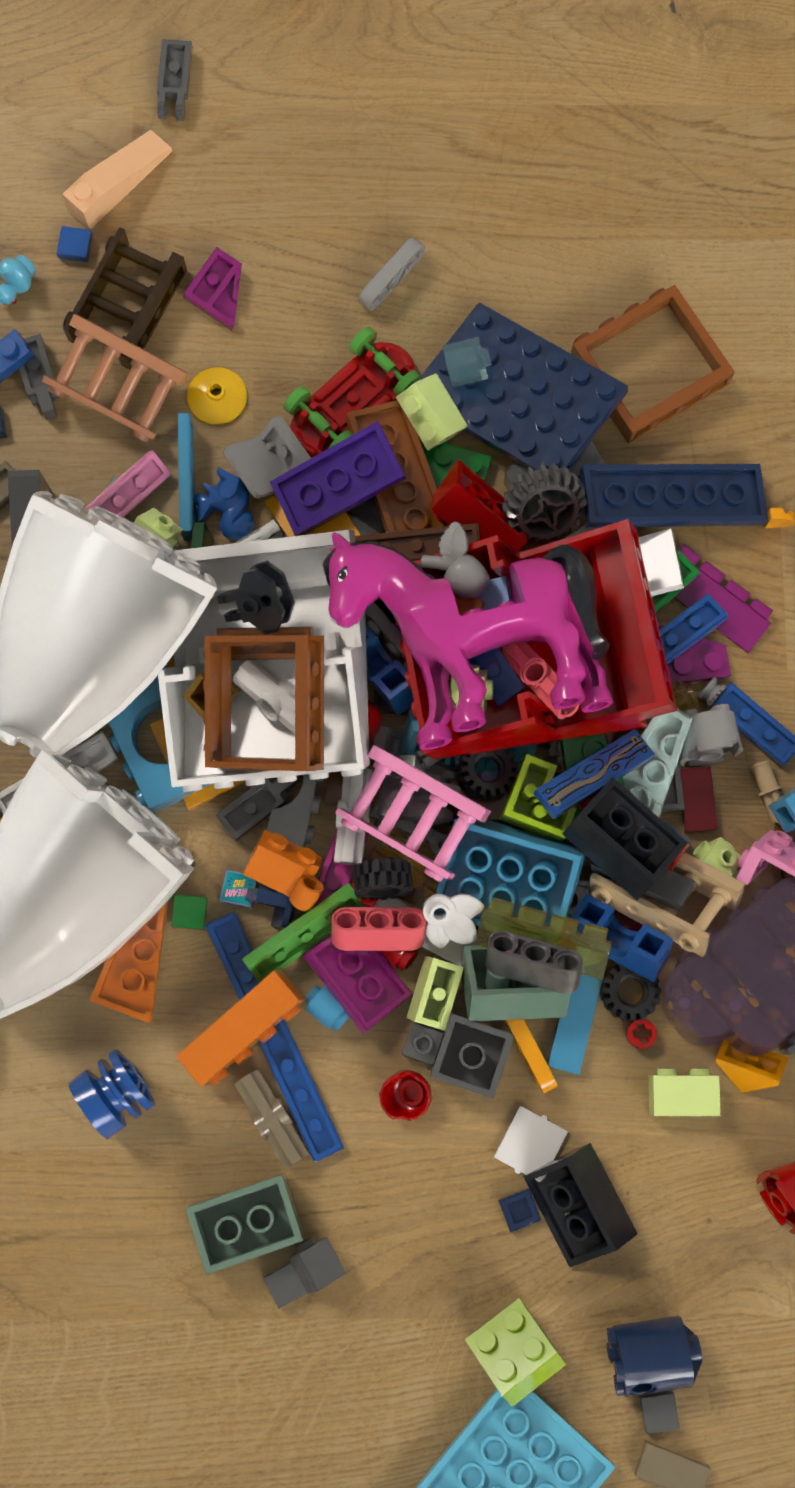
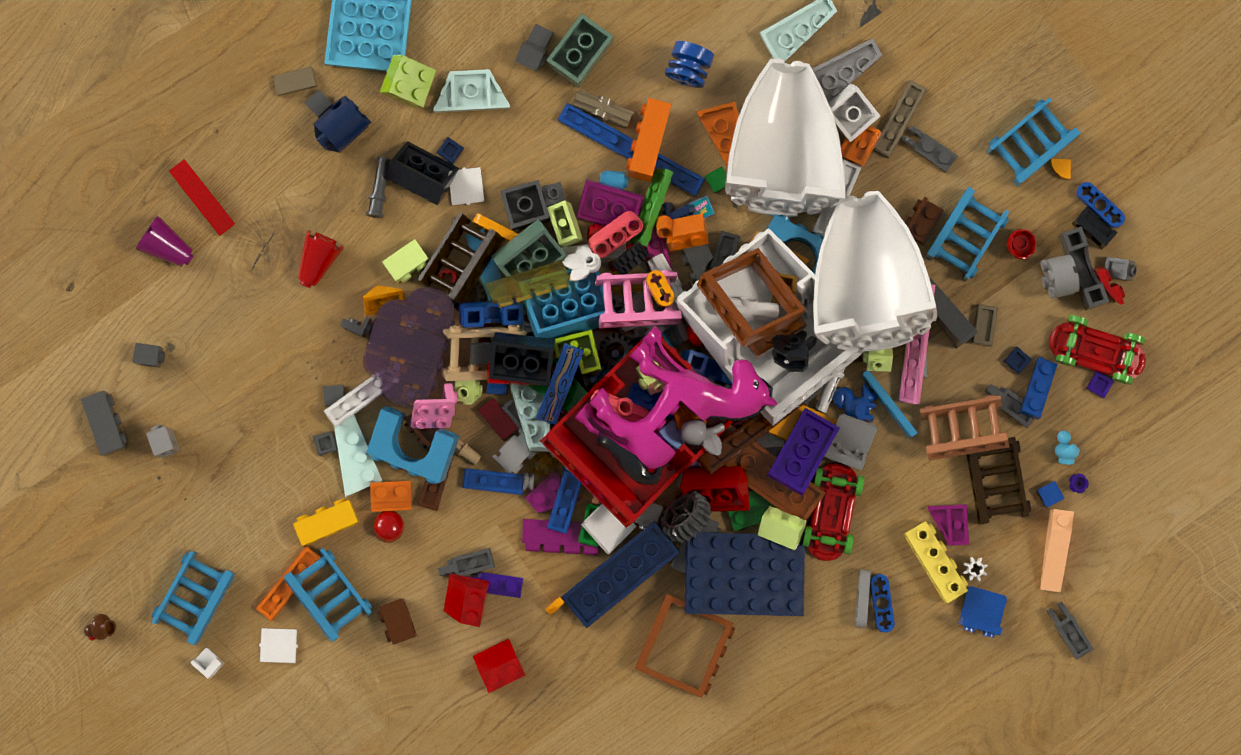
camera: 145 degrees right, 5 degrees up
(30, 225) = (1083, 483): none -> dark purple plate
(201, 536) = (854, 374): dark green tile -> none
(220, 408) = (897, 464): yellow dish -> none
(231, 217) = (972, 574): none -> white gear
(261, 163) = (982, 611): none -> blue bracket
(271, 256) = (935, 562): none -> light yellow brick
(366, 803) = (655, 291): none -> light orange beam
(372, 242) = (878, 619): none -> blue beam
(405, 1095) = (544, 164): red hair -> none
(435, 1273) = (471, 92): none -> light aqua wing
(466, 361) = (783, 568): clear light blue brick -> none
(534, 962) = (516, 265): flat silver beam -> none
(584, 1024) = (474, 269): none -> dark brown fence
(664, 1214) = (377, 197): none -> dark grey pin

